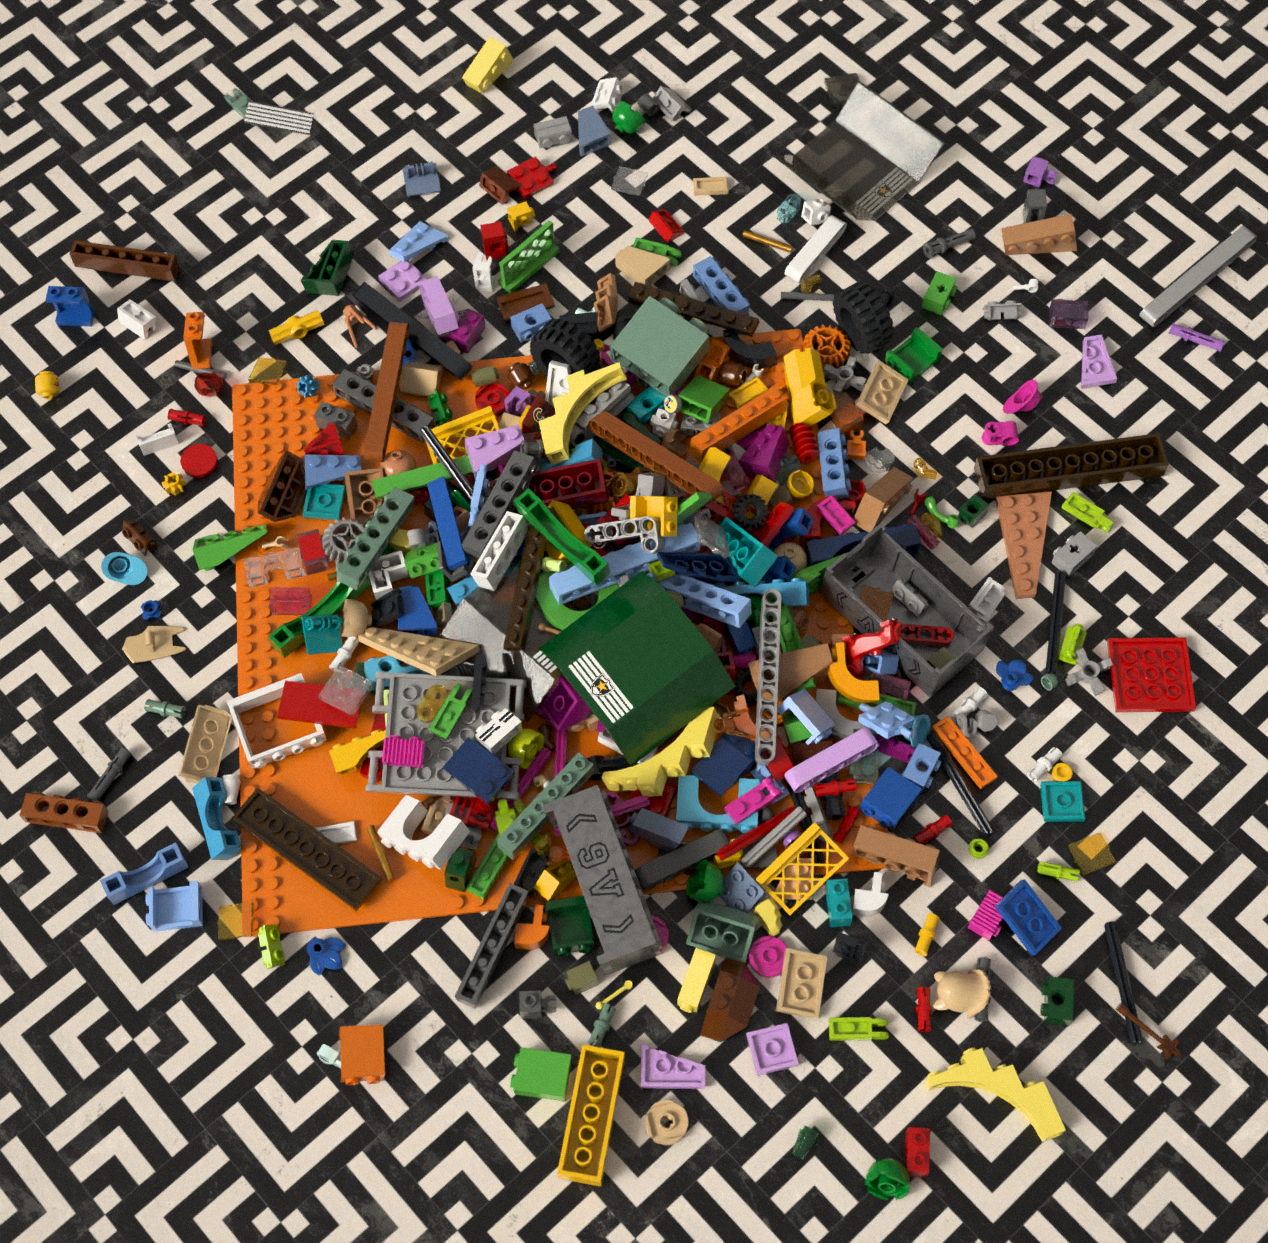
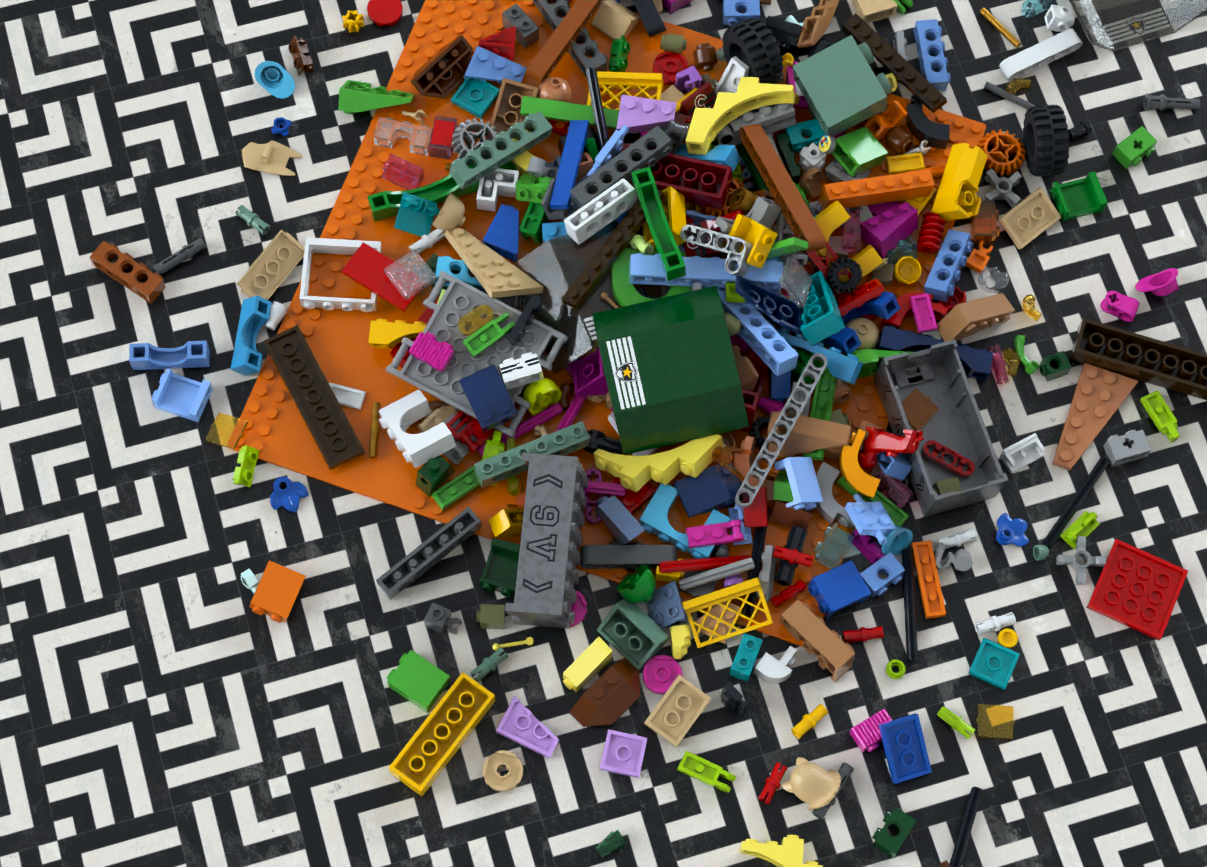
camera: 20 degrees right, 5 degrees up
(387, 608) = (482, 218): black plate -> none
(444, 614) = (529, 244): dark tan tile -> none
(531, 871) = (492, 505): black hinge -> none
(533, 935) = (470, 561): orange brick -> none
(831, 760) = (802, 530): lavender beam -> none
(905, 593) = (949, 410): light grey hinge -> none
(918, 499) = (1011, 332): red hand -> none
(994, 310) = (1179, 186): light grey hinge -> none

